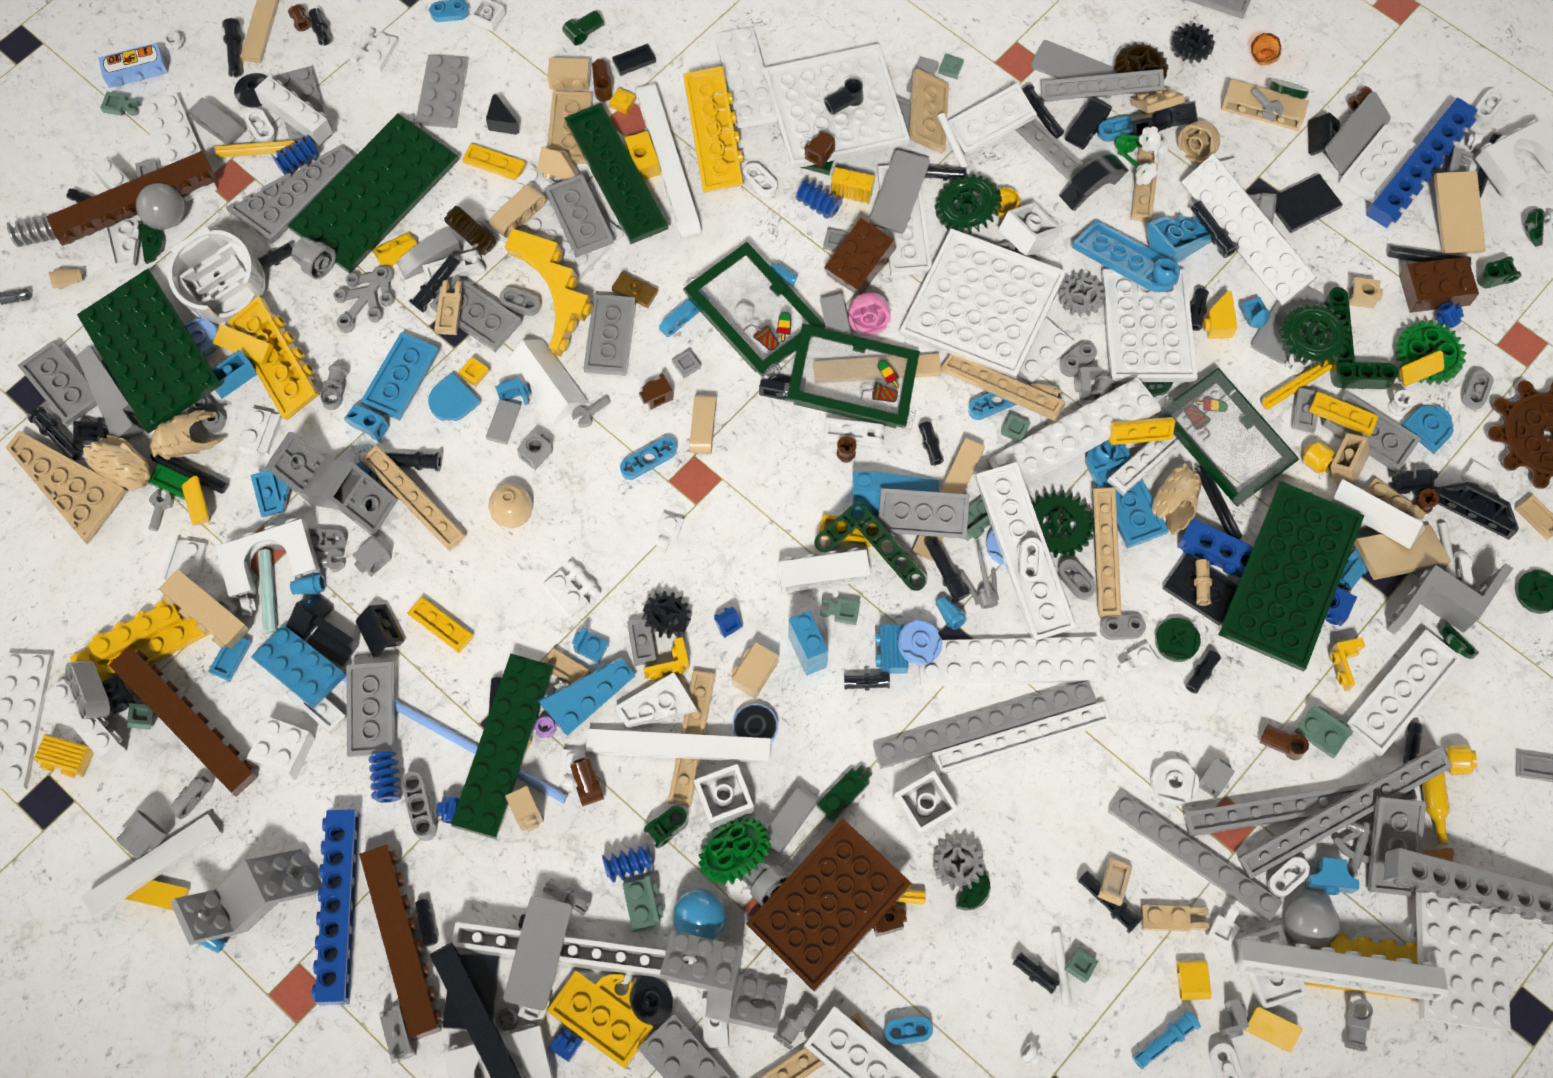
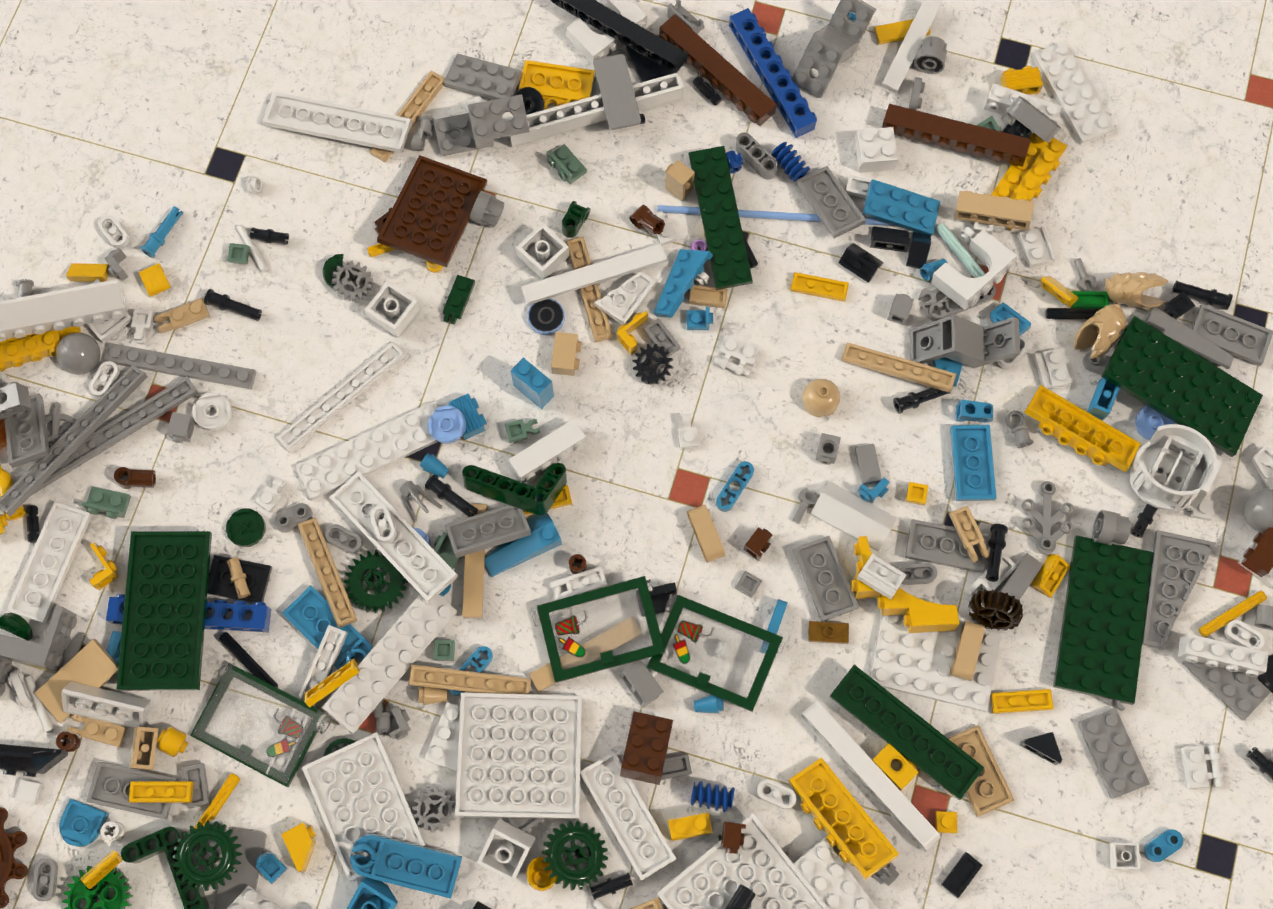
camera: 155 degrees right, 5 degrees up
(74, 490) = (1151, 255): tan wing -> none
(151, 243) = (1250, 482): dark green plate -> none
(228, 660) = (952, 192): dark azure tile -> none
(248, 345) = (1113, 426): yellow tile -> none
(295, 155) = (1191, 616): blue piece -> none
(451, 399) = (920, 463): dark azure tile -> none
(556, 163) = (962, 718): tan slope -> none
(559, 296) = (881, 576): none -> white plate
(565, 1044) = (572, 59): blue tile -> none
(567, 896) = (620, 145): light grey pin -> none
(569, 74) = (1009, 824): tan brick -> none
(579, 30) = (1030, 880): dark green piece -> none
(579, 215) = (913, 672): light grey plate -> none
(602, 80) = (978, 834): reddish brown piece -> none
(628, 863) = (588, 180): blue piece -> none
(700, 914) = (520, 165): dark azure piece -> none
(728, 622) = (604, 380): blue tile -> none
(734, 851) = (505, 204): green gear -> none
(791, 818) = (488, 261): light grey beam -> none
(862, 681) = (477, 384): black pin -> none
(869, 313) = (615, 700): bright pink cylinder -> none
(899, 191) = (643, 839): light grey piece -> none
(908, 1030) = (344, 162): dark azure plate -> none
(931, 443) = (510, 604): black pin -> none
(983, 724) = (372, 394): light grey plate -> none
(1079, 358) = (415, 745): light grey plate -> none
(1115, 881) = (233, 318): tan tile -> none
(1178, 498) = (282, 641): tan head -> none
(1198, 308) = (324, 846): black pin -> none
(1203, 671) = (216, 508): black pin -> none
(1332, 877) = (71, 391): dark azure brick -> none
(1404, 482) = (82, 755): black hinge -> none

